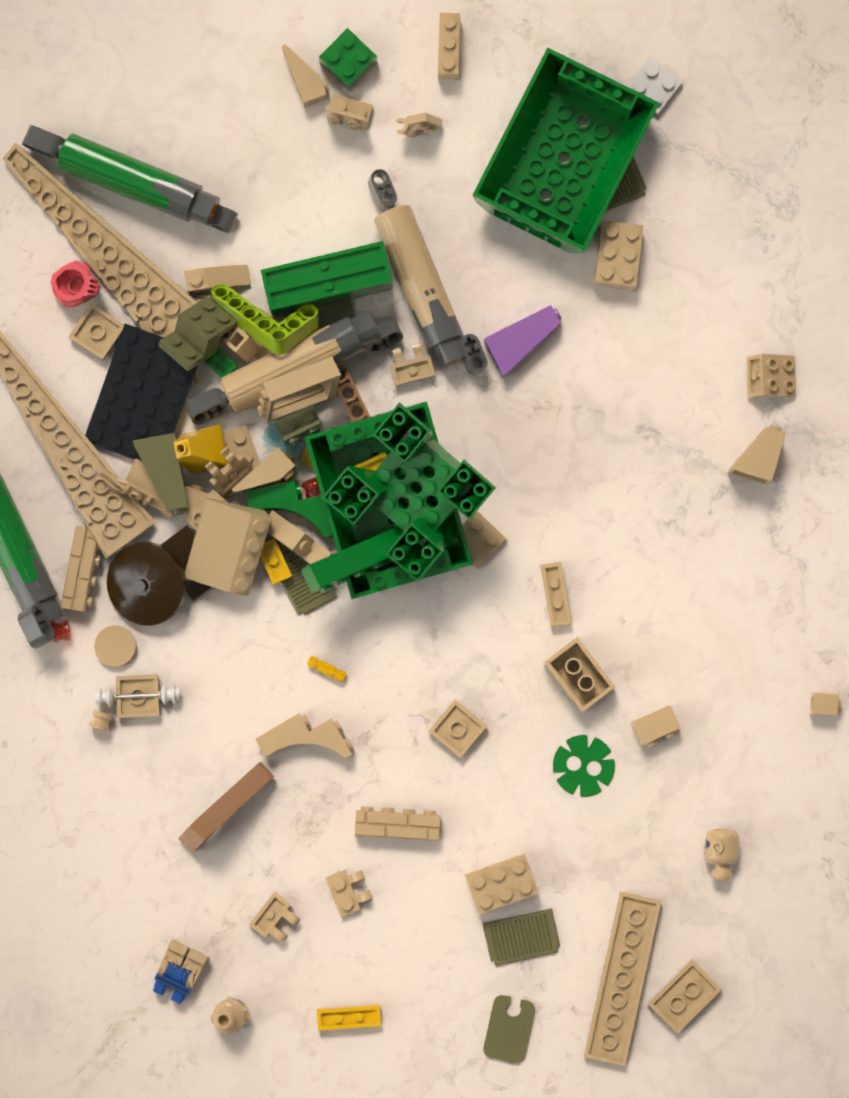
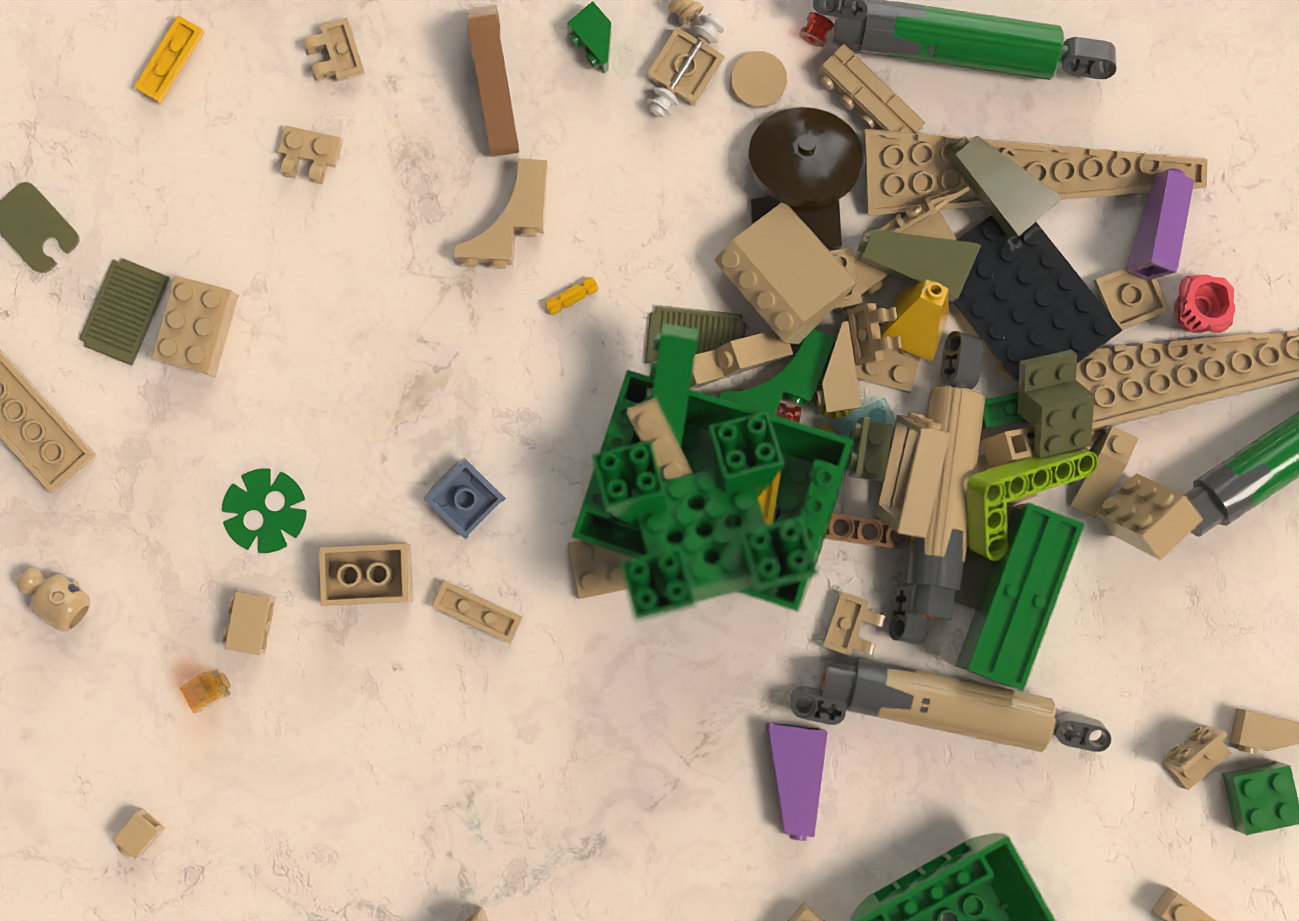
camera: 120 degrees right, 0 degrees up
(45, 341) = (1162, 226): none -> medium lavender slope
(86, 451) = (1003, 187): none -> olive slope
(155, 766) = (593, 33): none -> green slope
(228, 235) = (1149, 516): none -> tan brick
(274, 562) = (732, 317): yellow plate -> none
(376, 558) = (653, 426): none -> tan plate
(397, 825) = (342, 255): tan brick -> none
(423, 121) = (1133, 831): tan plate -> none
(457, 728) = (402, 396): tan plate -> none
(493, 649) = (463, 497): none -> sand blue slope
(713, 722) = (206, 690): none -> clear yellow slope

